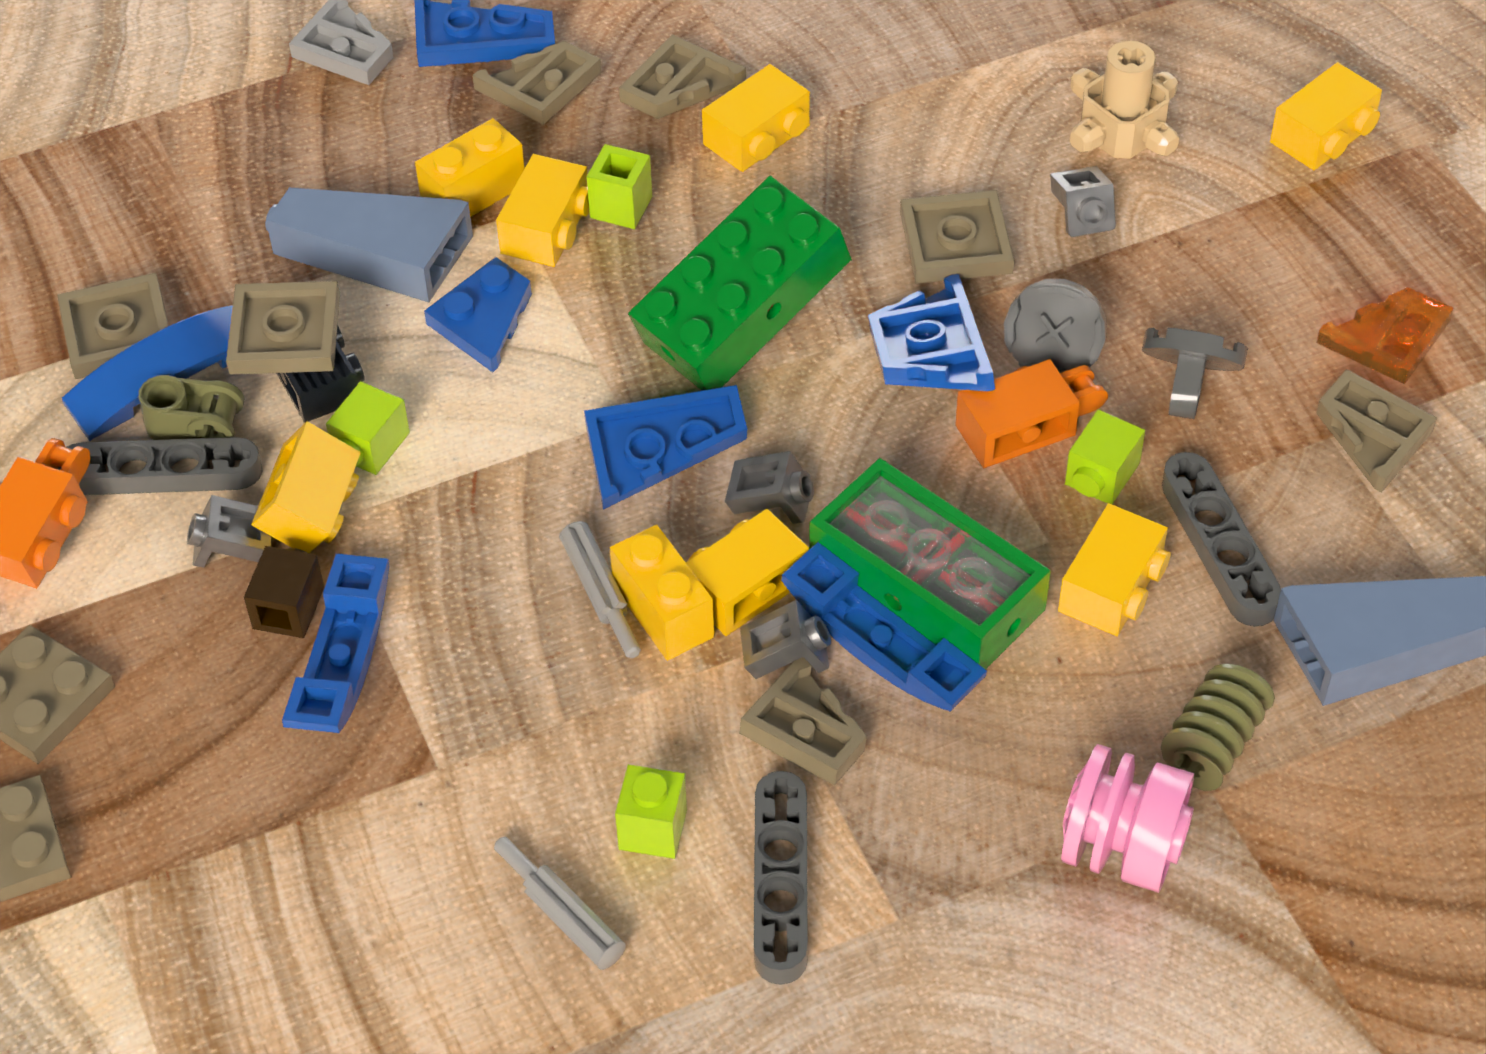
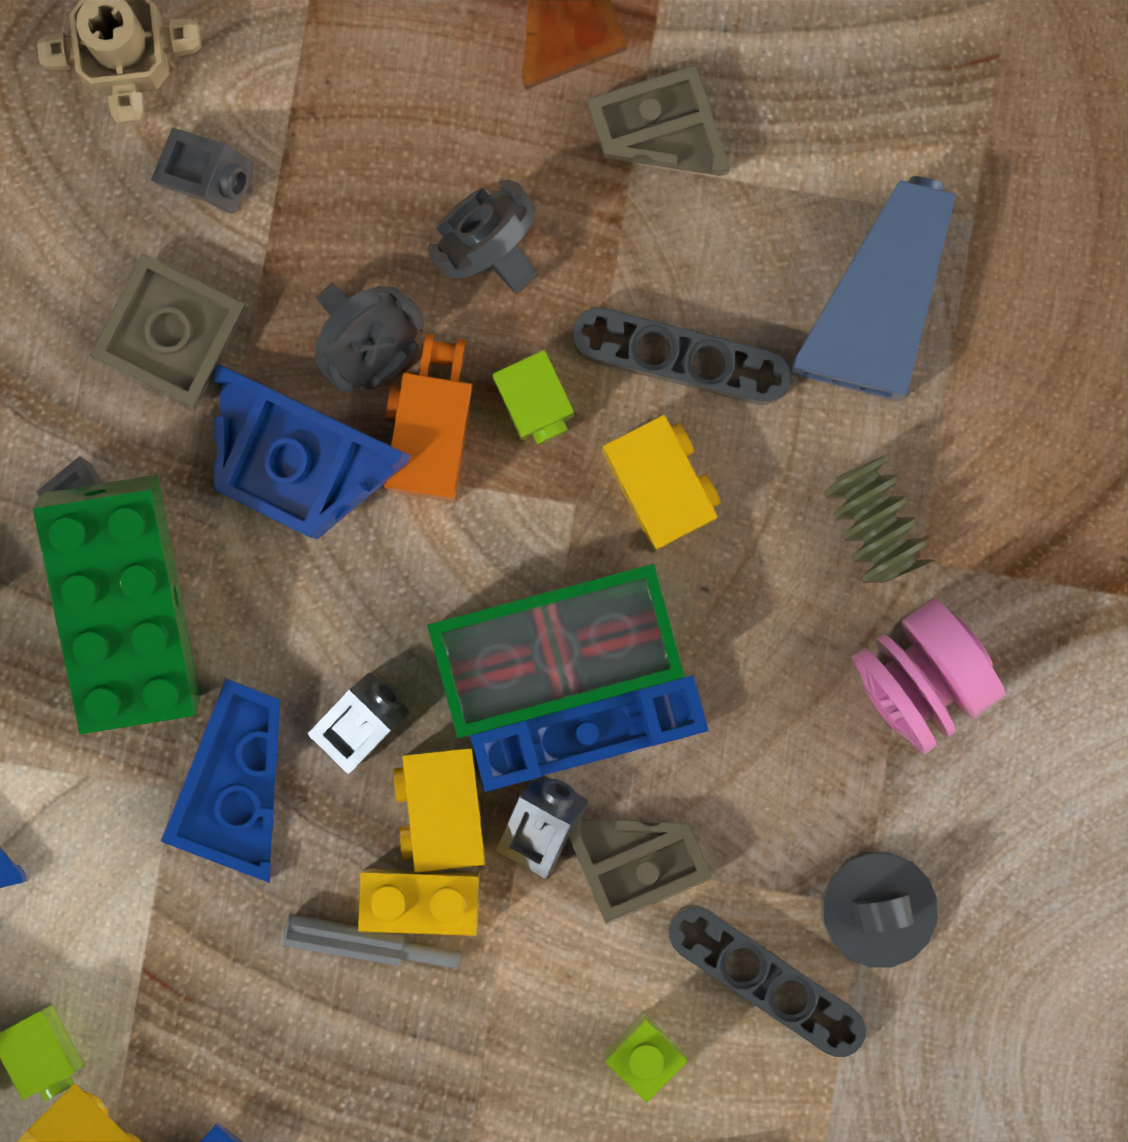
camera: 65 degrees left, 35 degrees up
(906, 926) = (879, 909): none -> dark grey tile

